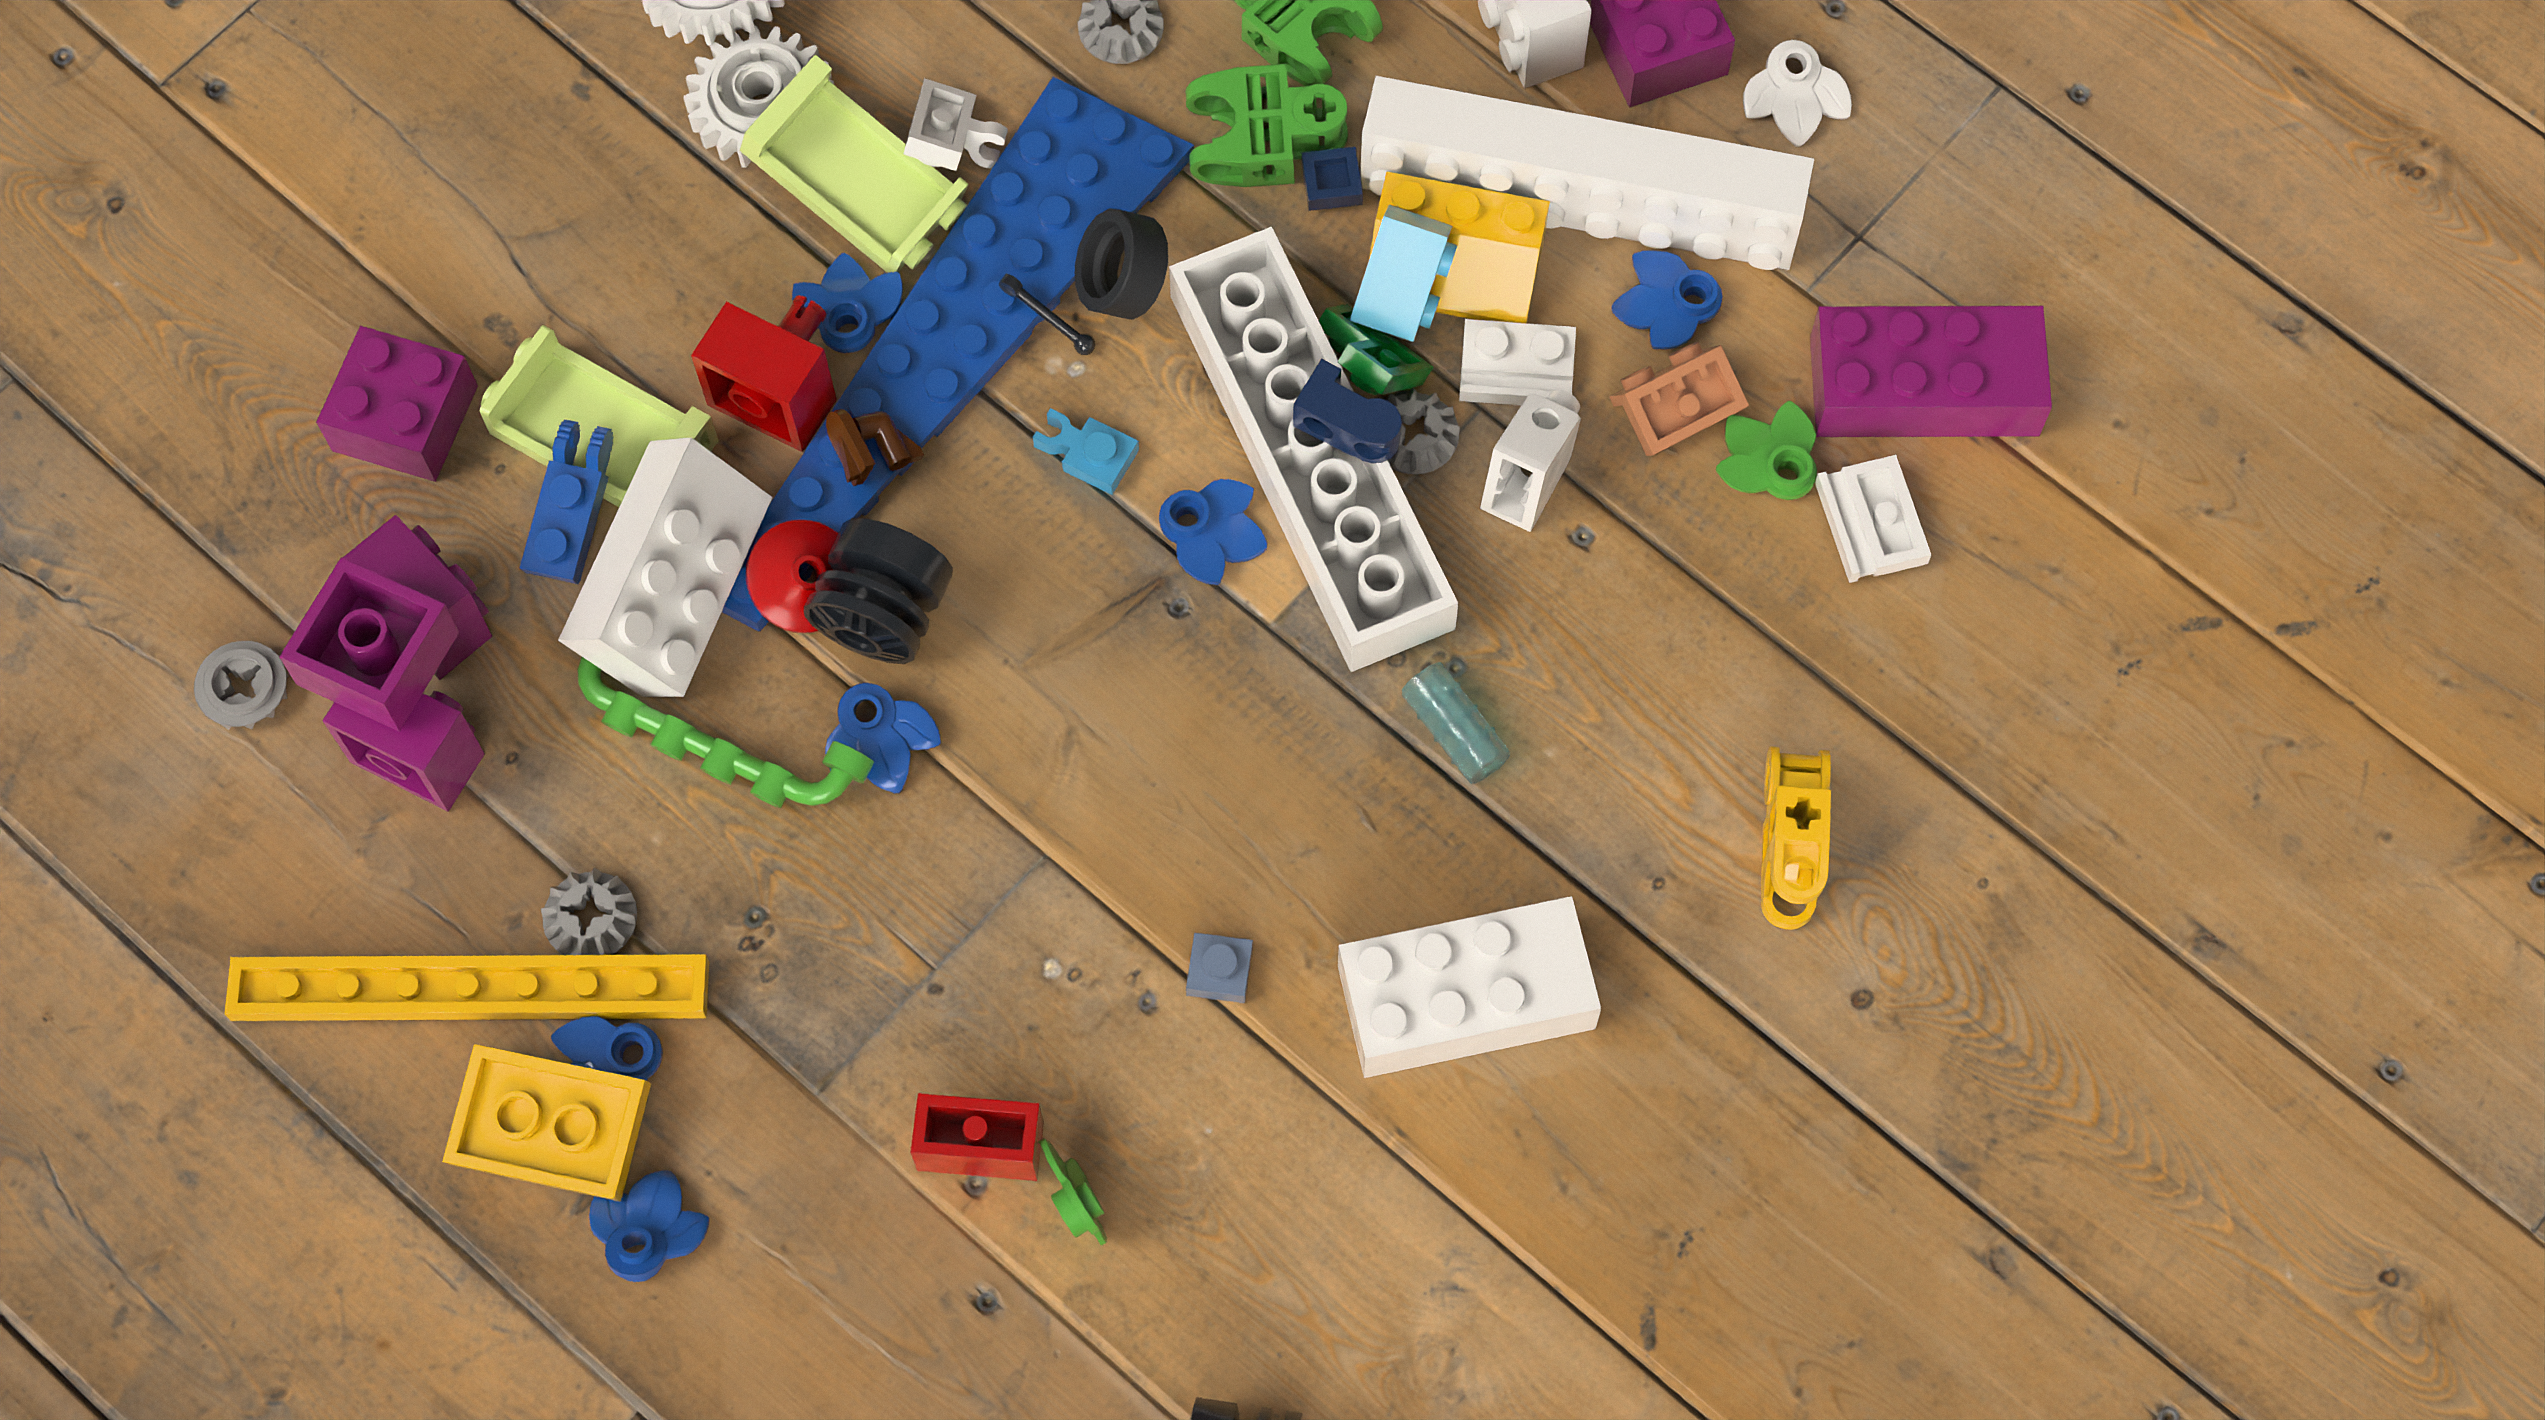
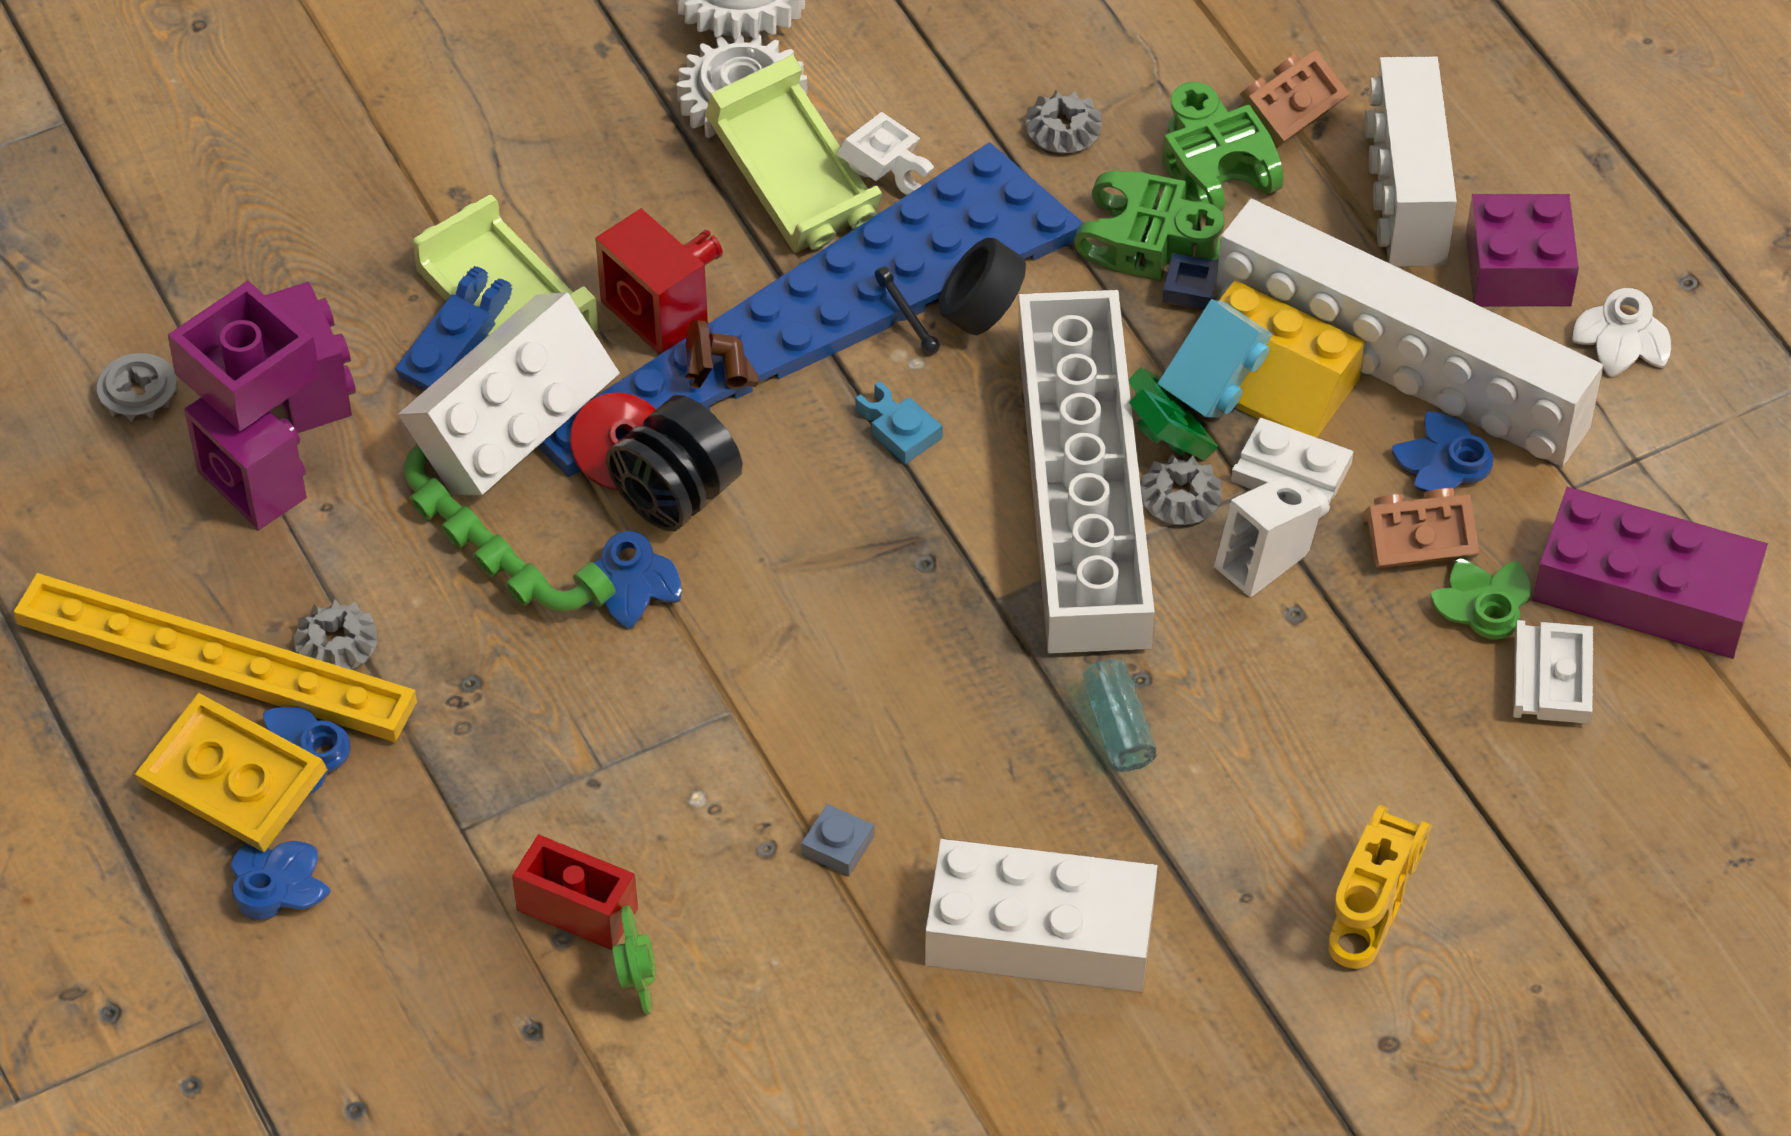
camera: 20 degrees right, 15 degrees down
(397, 403) = (351, 221): magenta brick -> none
(852, 299) = (751, 260): blue plate -> none
(1220, 532) = (981, 512): blue plate -> none
(1345, 419) = (1116, 442): dark blue leg -> none

